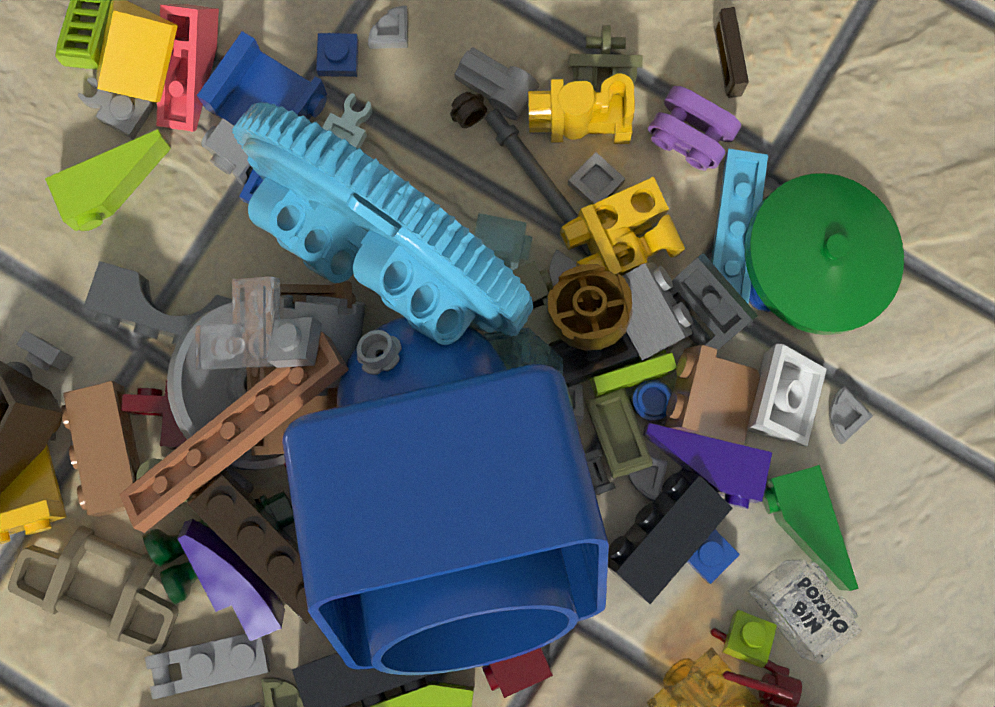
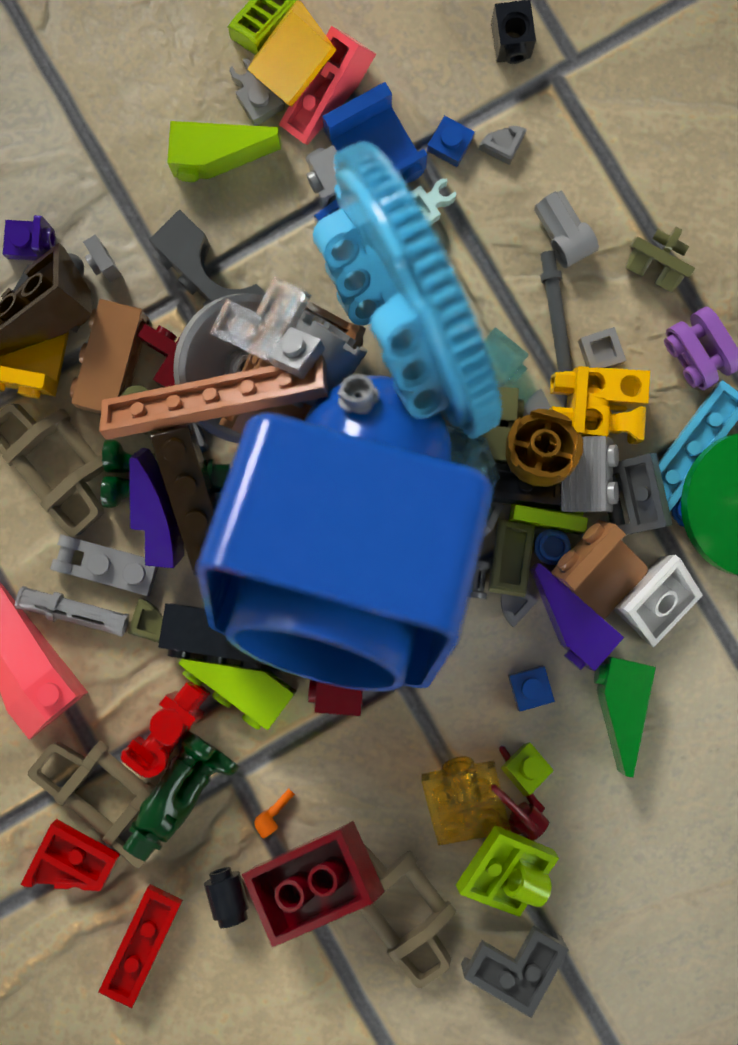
camera: 30 degrees right, 5 degrees up
(468, 109) = (531, 239): dark brown plate -> none
(580, 110) = (620, 287): yellow hips -> none
(666, 534) = (507, 655): black brick -> none
(806, 609) = (583, 771): clear brick -> none
(846, 415) = (698, 639): light grey tile -> none

